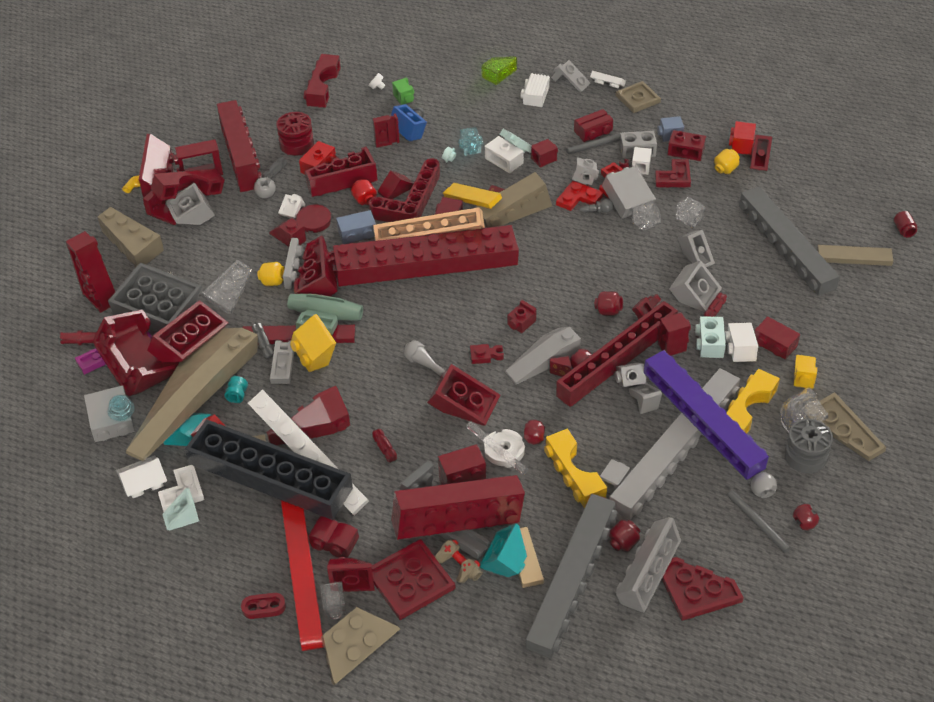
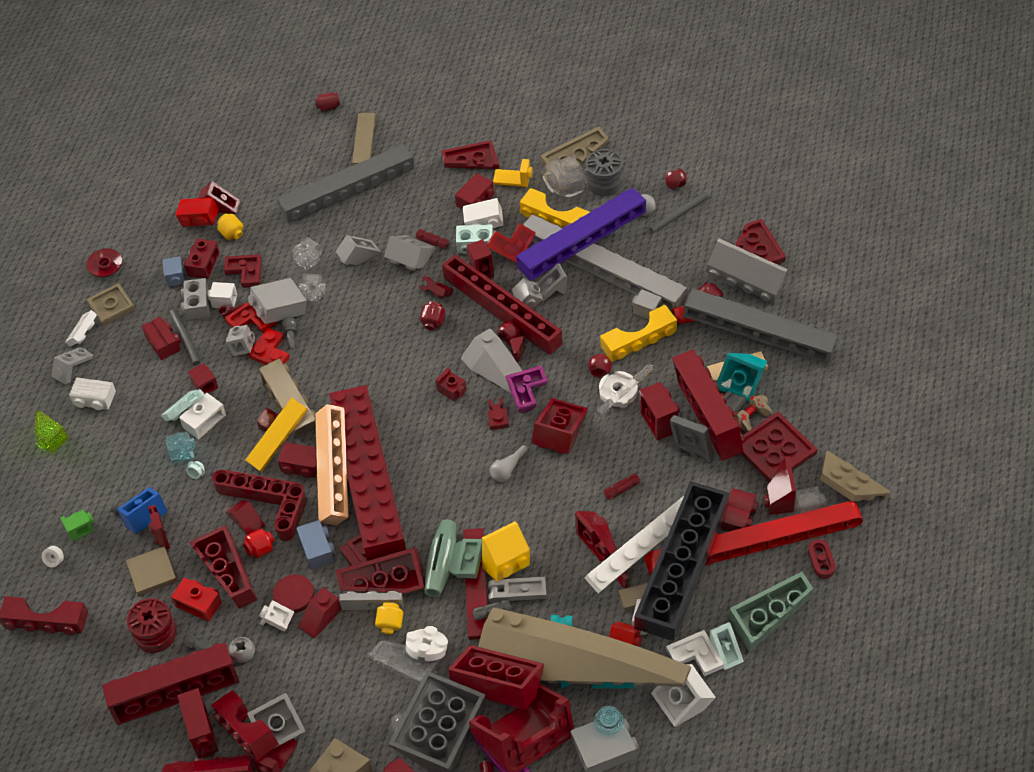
camera: 90 degrees left, 5 degrees up
(205, 542) = (766, 611): none -> sand green wedge
(243, 288) = (426, 644): none -> white plate
(354, 136) = (151, 570): none -> dark tan tile
(512, 365) = (521, 385): none -> magenta brick
(682, 86) = (104, 262): none -> dark red dish
(695, 361) = (511, 247): none -> red plate
(834, 338) = (475, 155): none -> dark red wing

